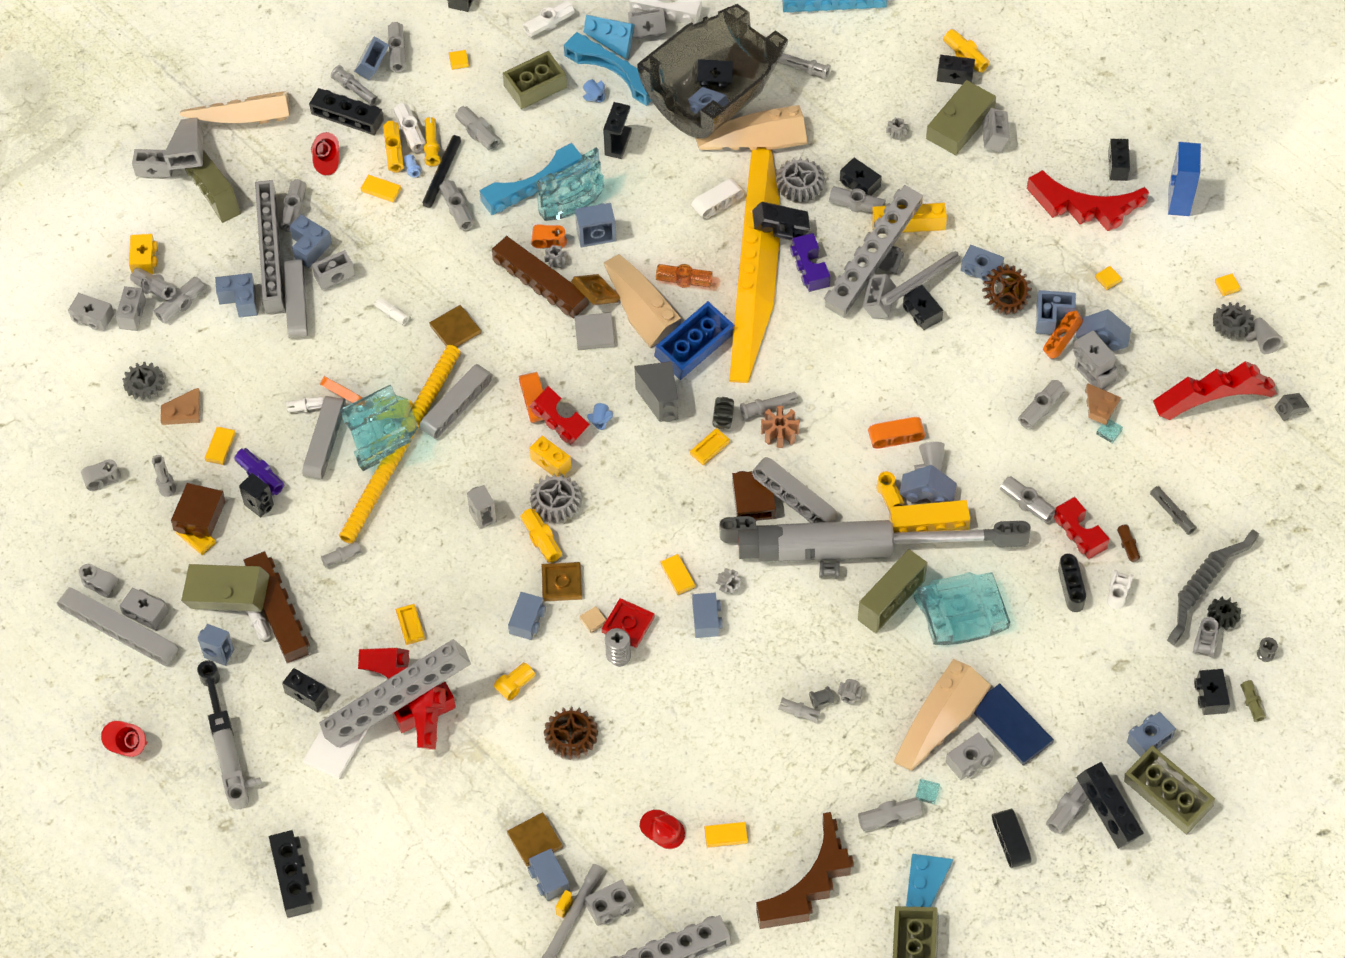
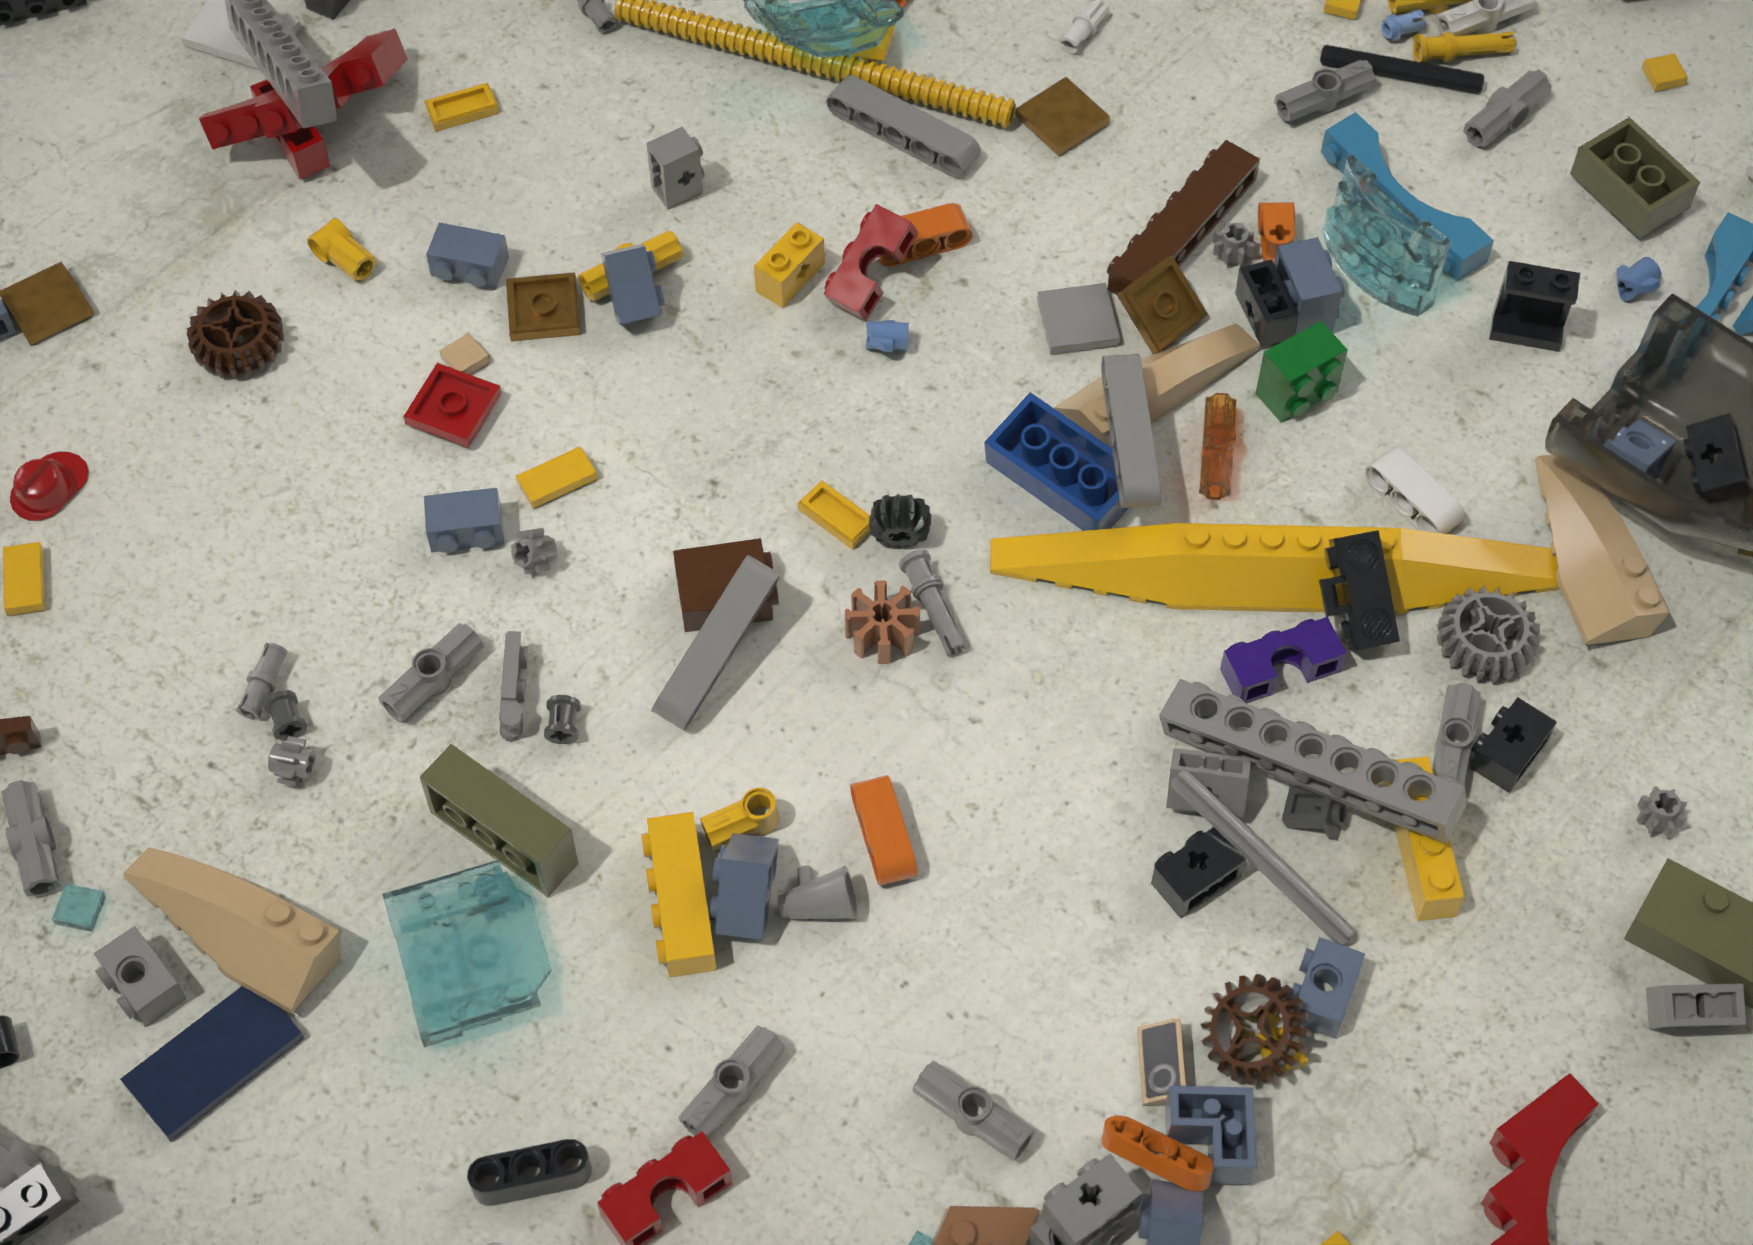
camera: 85 degrees right, 0 degrees up
(551, 490) = (707, 280): light grey gear -> none
(562, 529) = (632, 283): none -> sand blue piece
(599, 244) = (1266, 302): none -> black brick
(617, 647) = (389, 380): light grey piece -> none
(647, 232) = (1301, 372): none -> green brick
(658, 389) = (937, 413): dark grey slope -> none
(688, 300) = (1130, 431): none -> light grey beam
(791, 621) = (416, 687): none -> light grey piece
(809, 592) = (512, 687): none -> light grey hinge
(849, 539) = (620, 751): piece -> none
(1016, 331) = (1160, 1060): none -> slope

